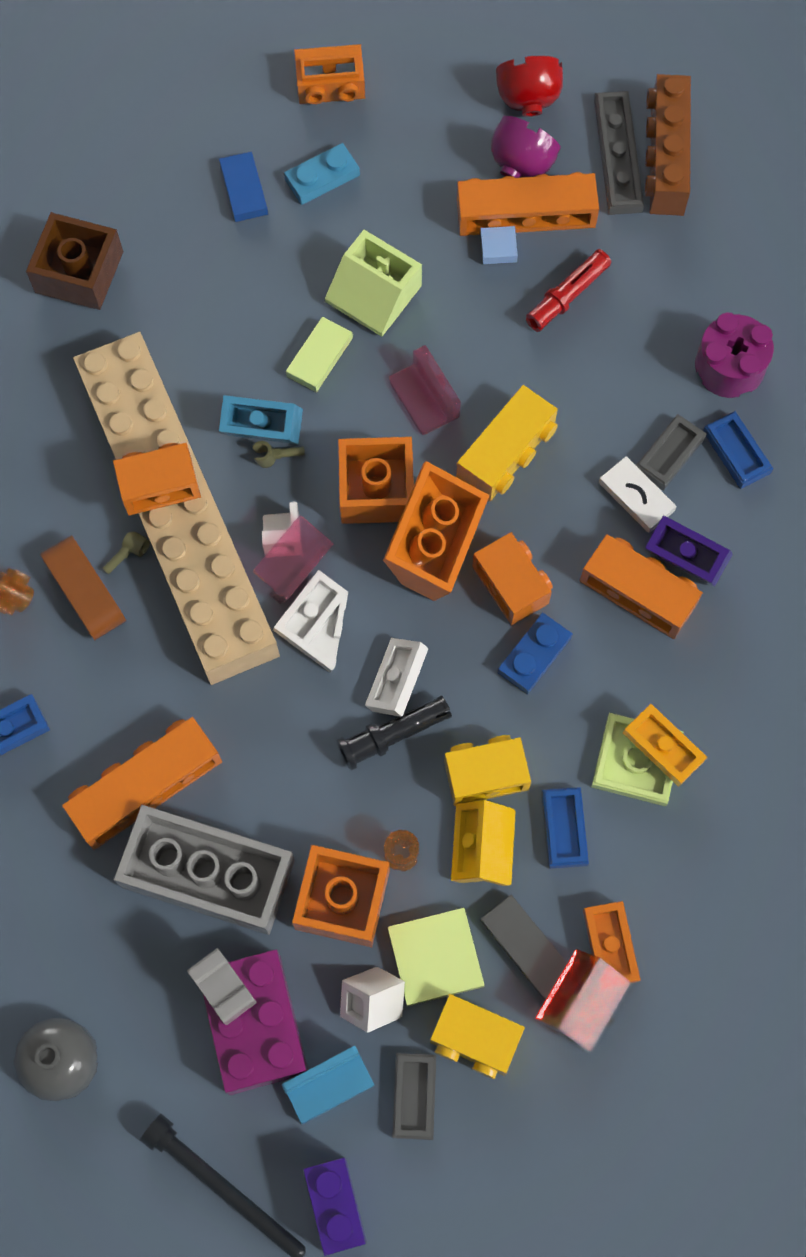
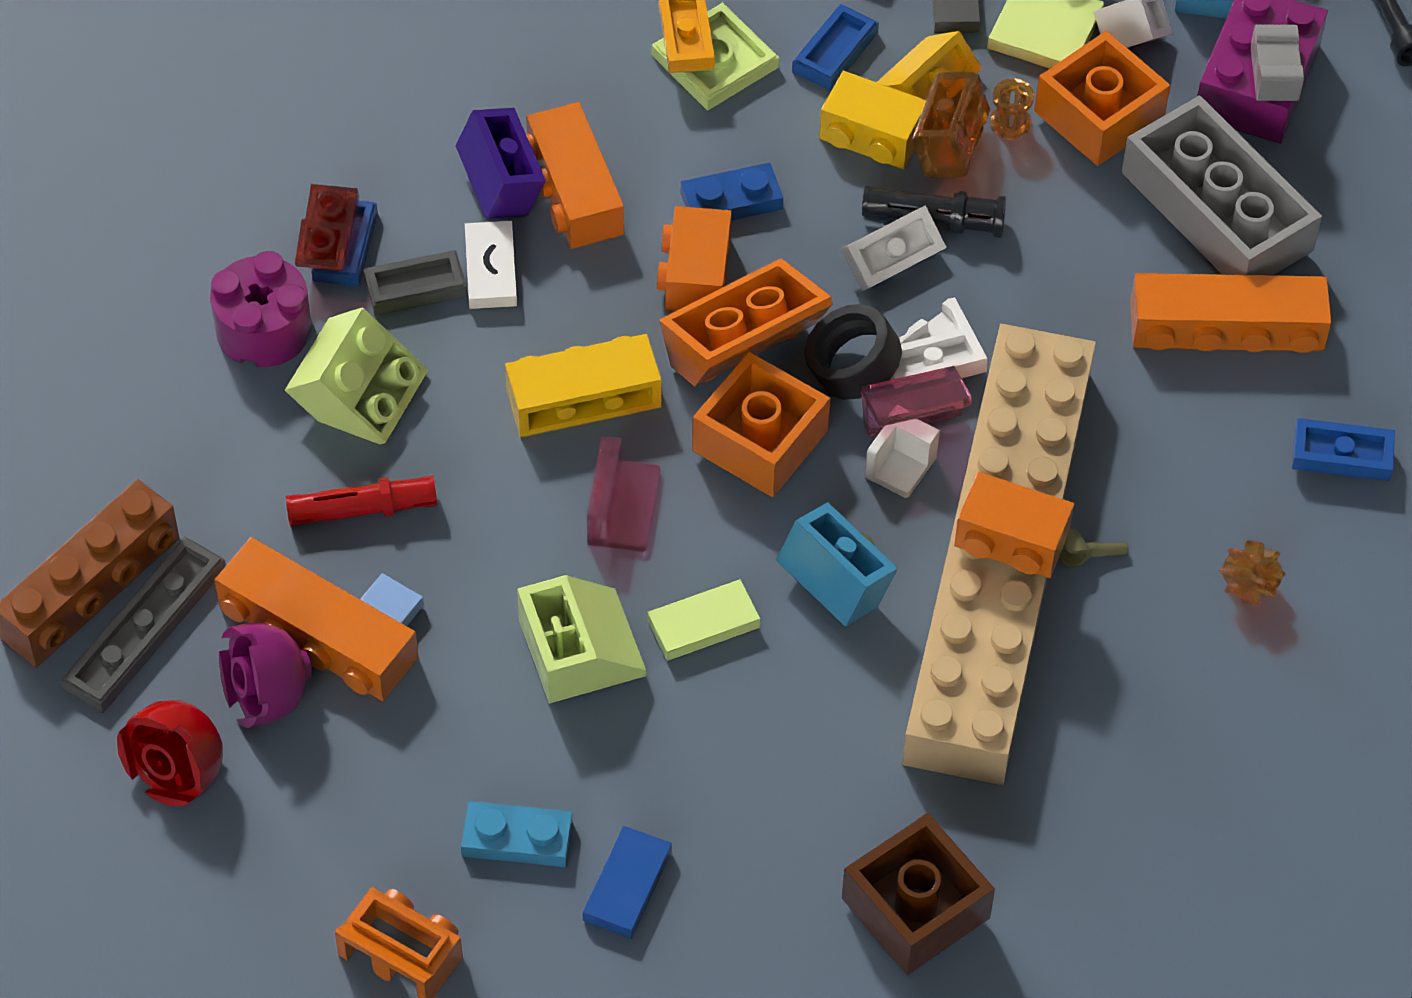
camera: 145 degrees left, 15 degrees down
(83, 587) = (1165, 533): dark orange beam -> none
(349, 590) = (838, 329): none -> black tyre
(427, 795) = (951, 124): none -> clear orange brick
(640, 355) = (357, 377): none -> yellowish green slope
(747, 435) = (327, 227): none -> clear red slope

